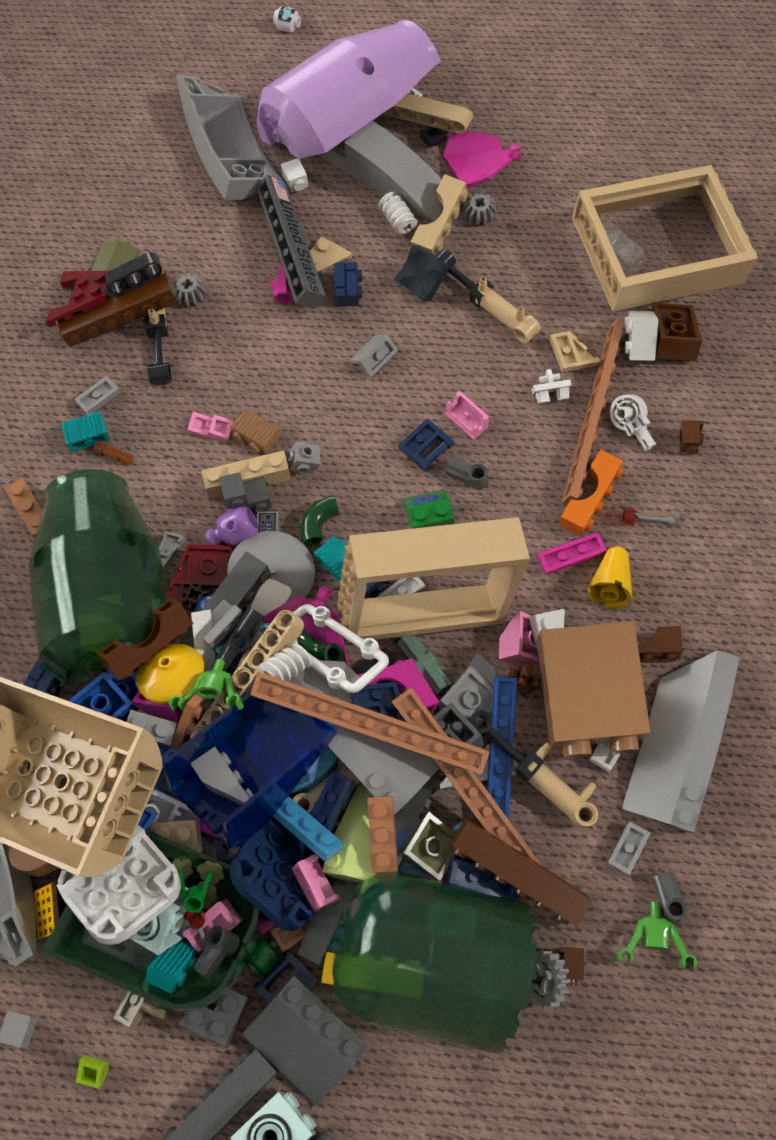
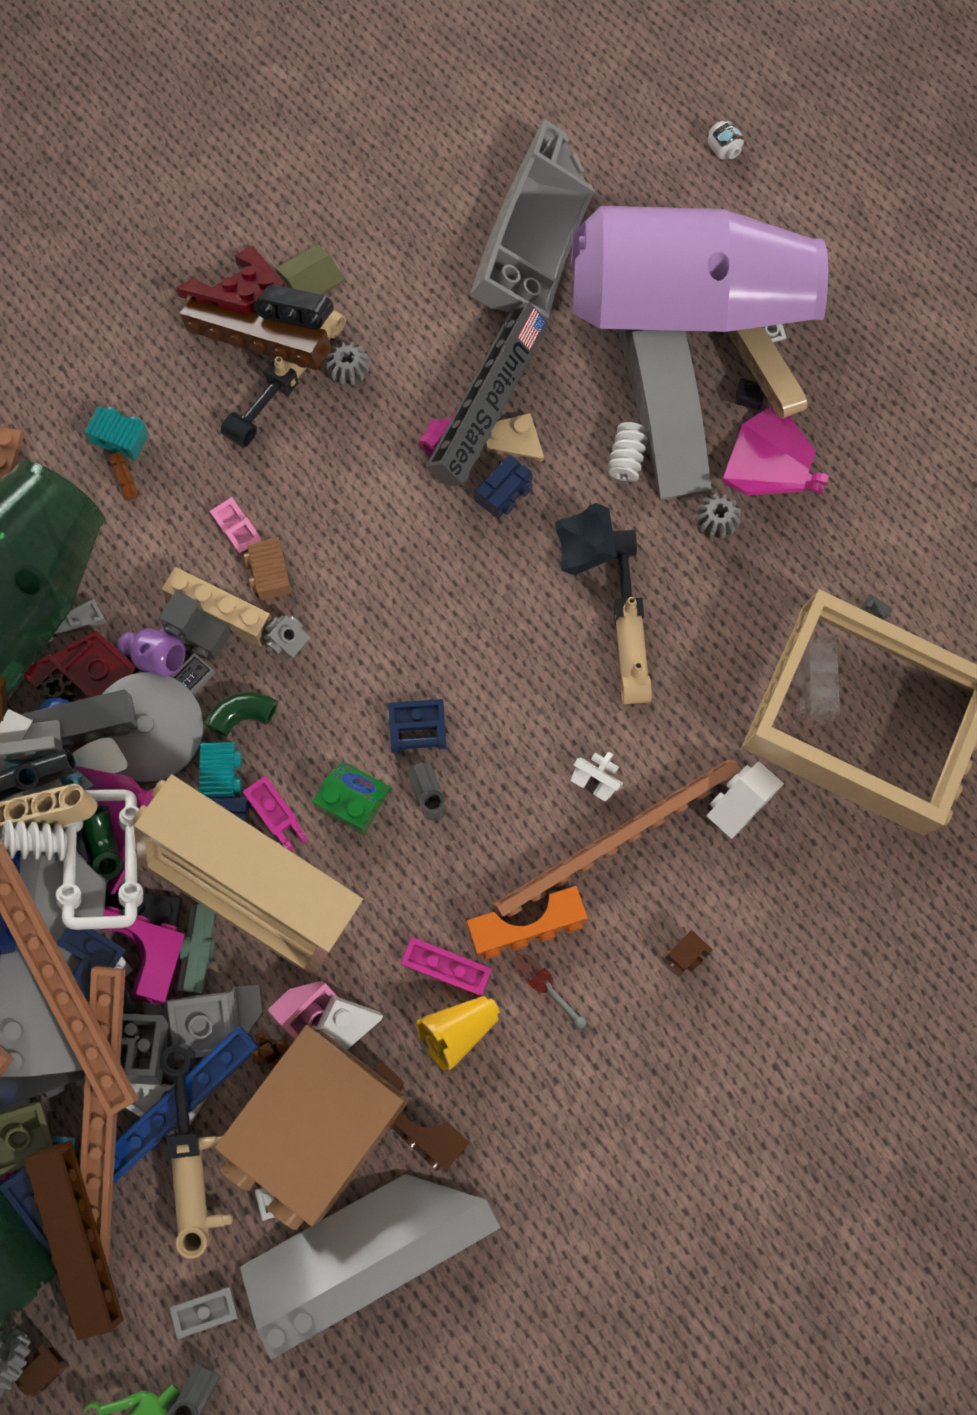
camera: 35 degrees right, 5 degrees up
(97, 395) = (162, 404): light grey plate -> none
(294, 175) = (565, 325): white brick -> none
(374, 354) = (460, 585): light grey panel -> none
(450, 194) = (695, 480): tan arch -> none
(467, 415) = (484, 731): bright pink hinge -> none
(571, 353) = (657, 755): tan wing -> none
(635, 418) = (645, 881): white pin -> none
(677, 332) = (786, 825): reddish brown slope -> none

